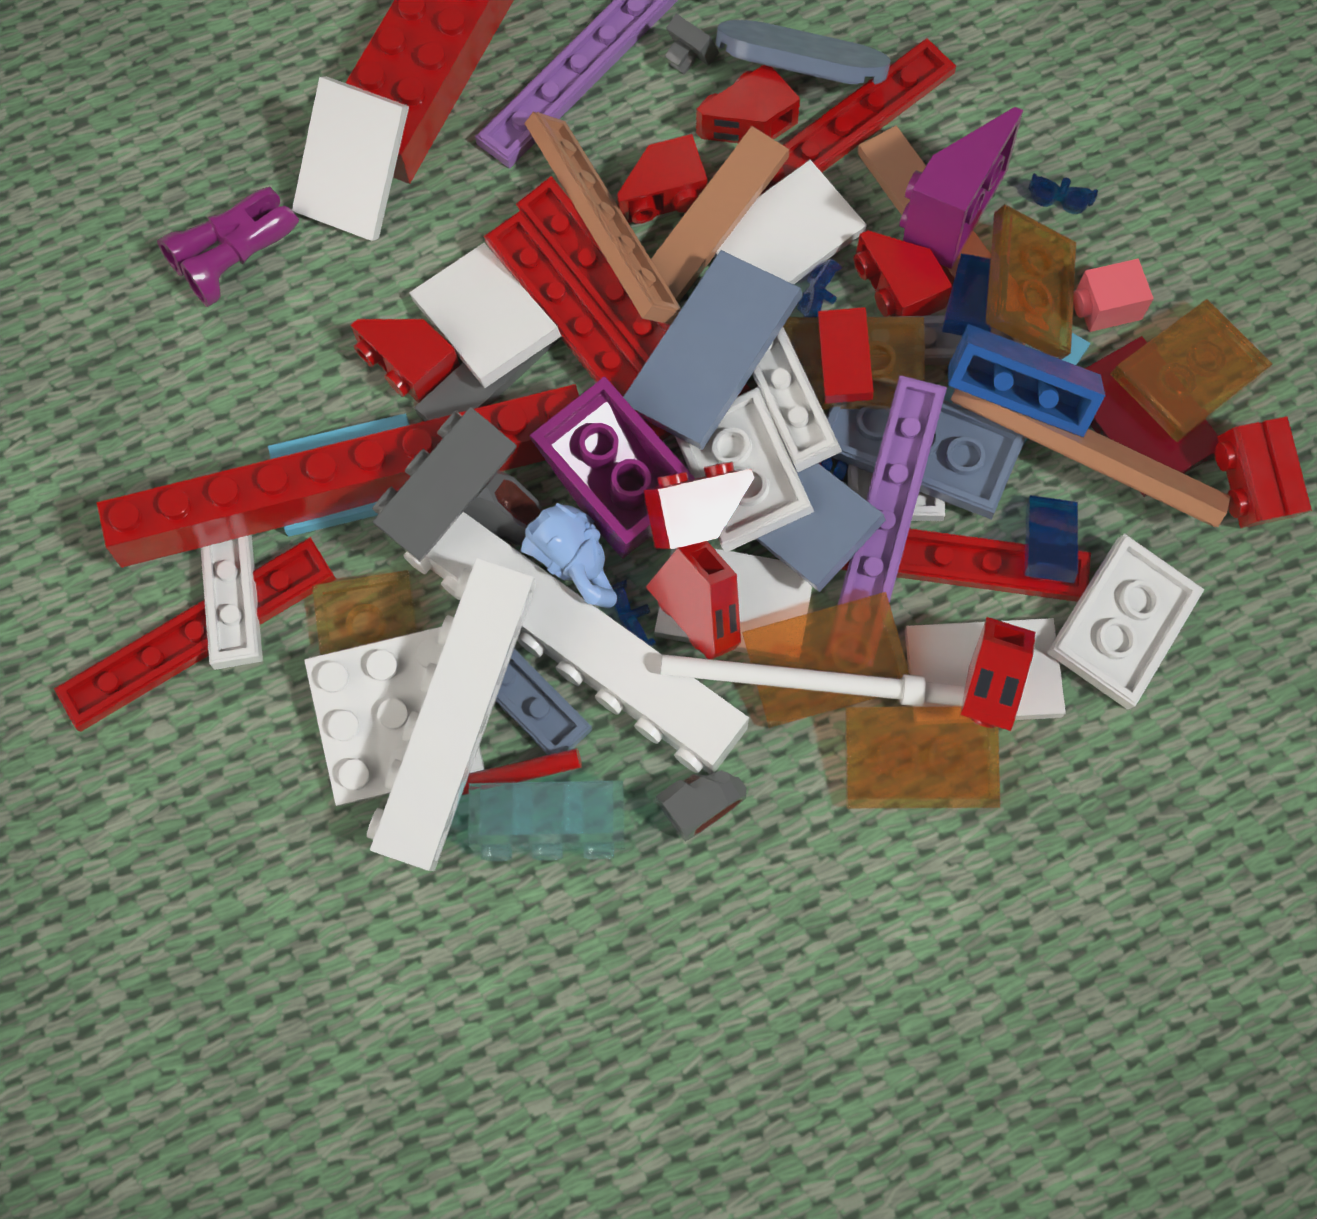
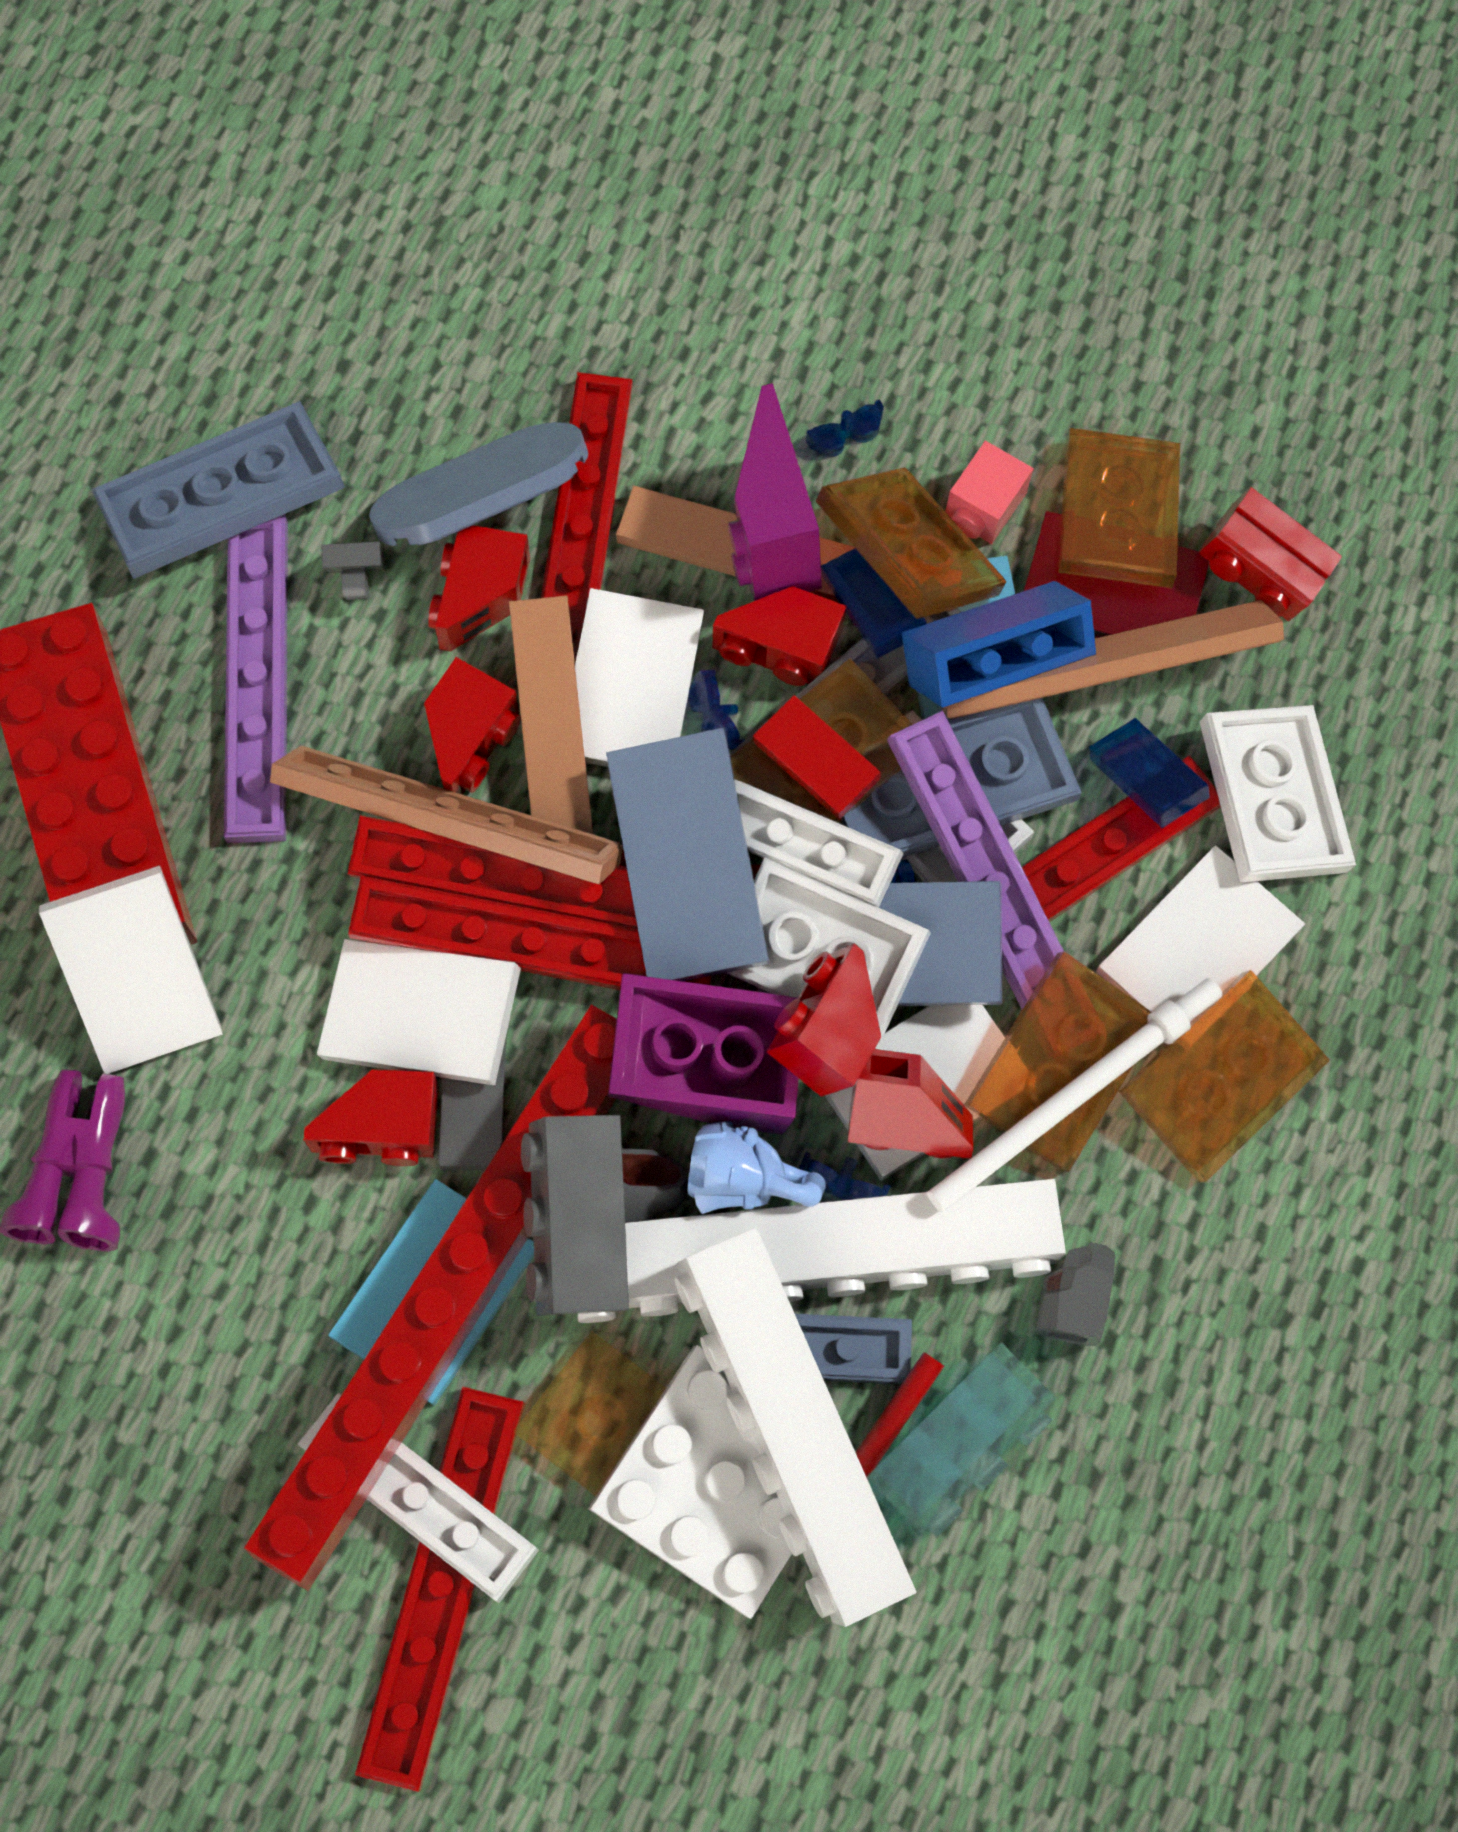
camera: 50 degrees left, 0 degrees up
(997, 674) = (1233, 941): red slope -> none

